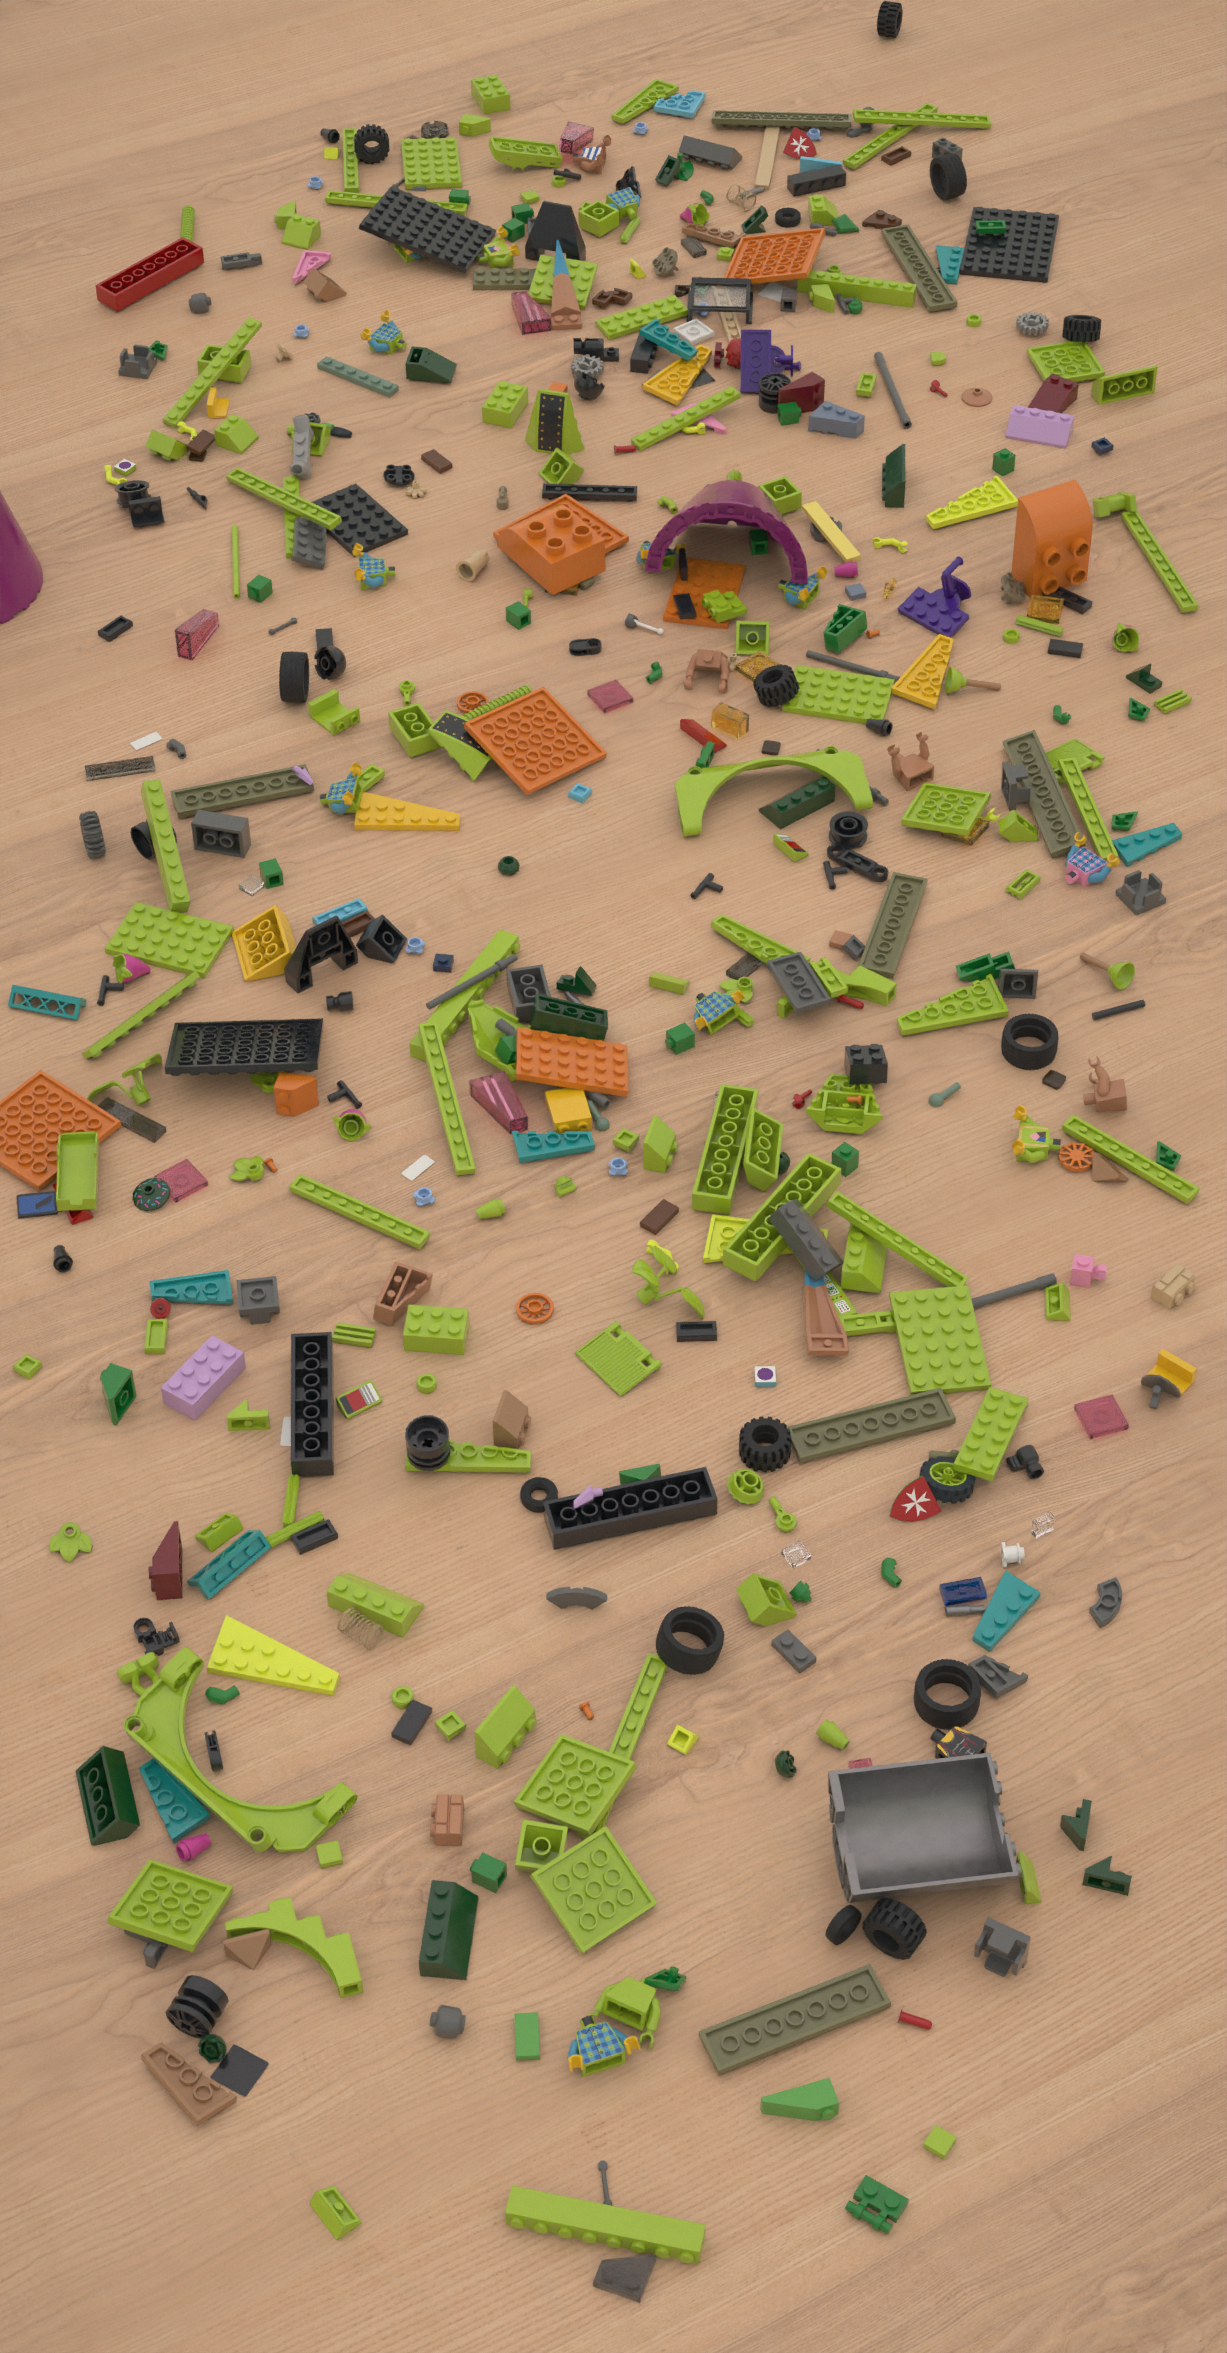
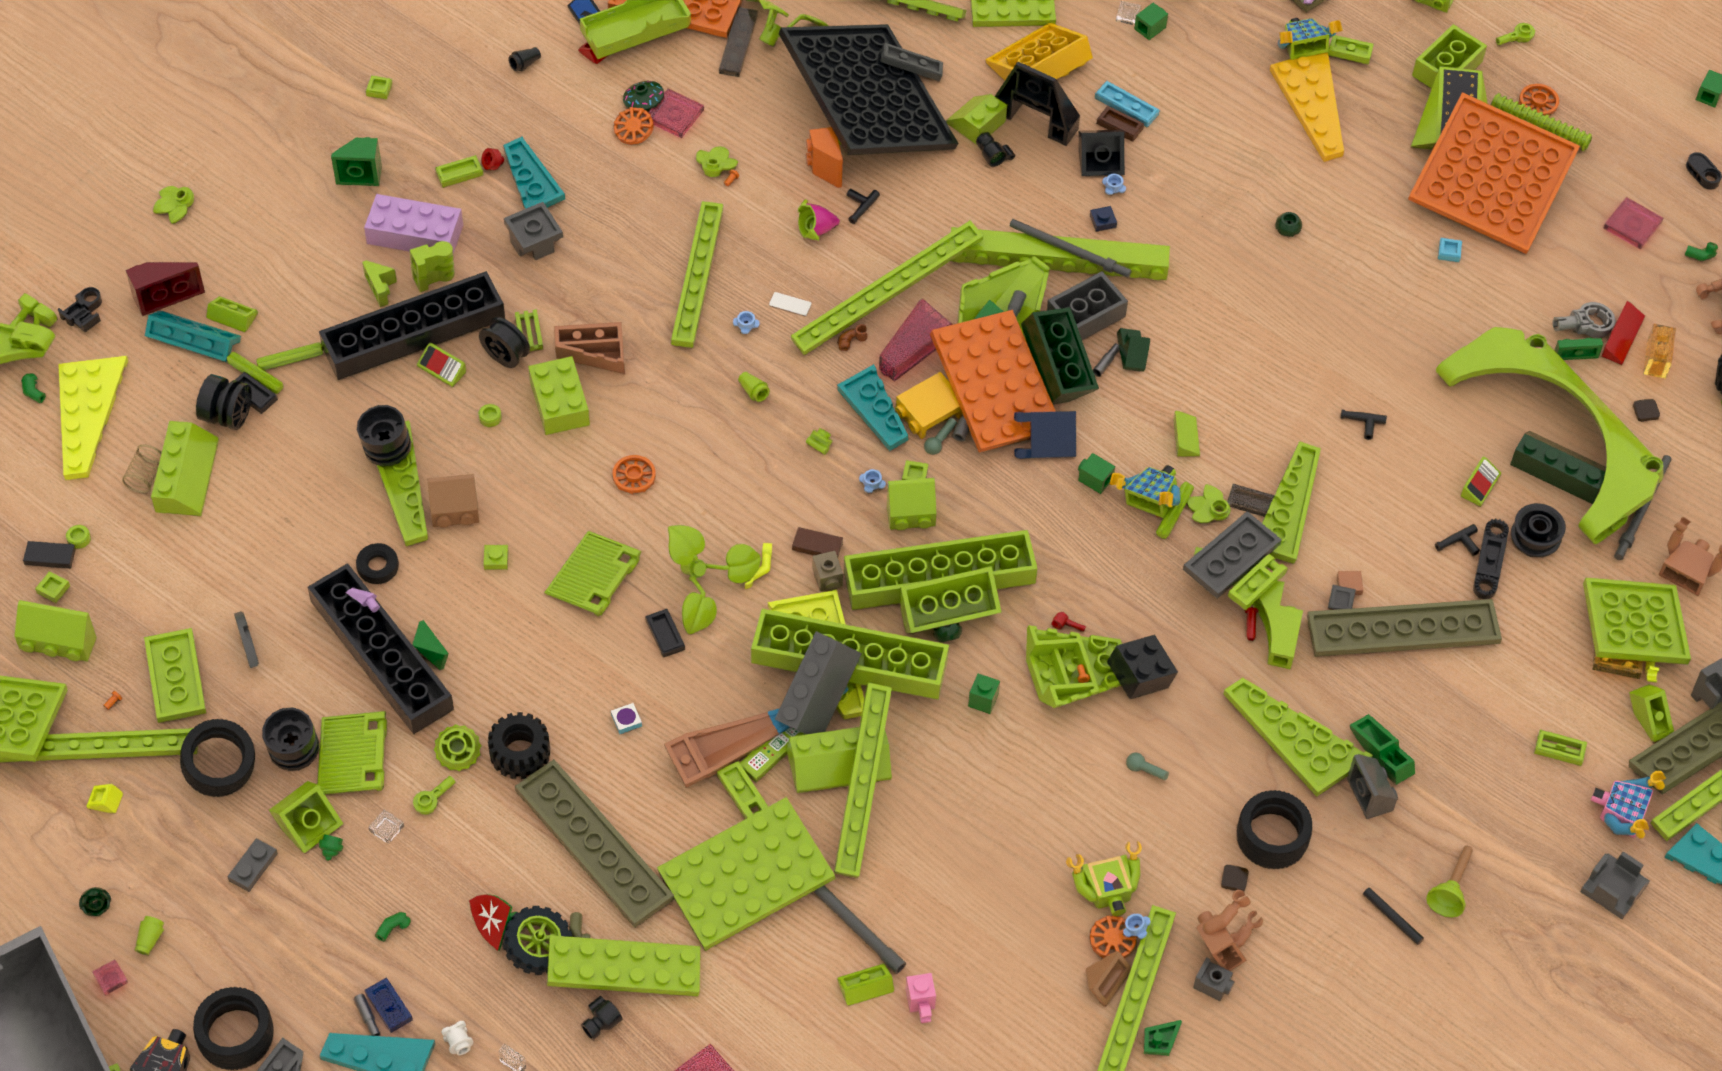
camera: 65 degrees right, 10 degrees up
(180, 1209) = (633, 125): none -> orange wheel
(226, 1018) = (912, 61): none -> dark grey tile
(257, 1373) = (432, 264): none -> lime legs
(303, 998) = (979, 116): none -> lime slope
(325, 1549) = (223, 402): none -> black wheel
(368, 1345) = (504, 342): none -> black wheel
(472, 1139) = (845, 338): none -> dark orange arm
(571, 1416) = (495, 557): none -> lime plate
(585, 1658) = (175, 675): none -> lime plate
(635, 1050) = (1051, 434): none -> dark blue flag
(683, 743) = (1582, 324): none -> light grey pin
(694, 1213) = (827, 571): none -> dark tan brick
(694, 1584) = (290, 727): none -> black wheel
(716, 1558) = (350, 752): none -> lime window
(1078, 1131) = (1136, 920): none -> light blue plate
(1136, 1111) = (1208, 985): none -> dark grey brick

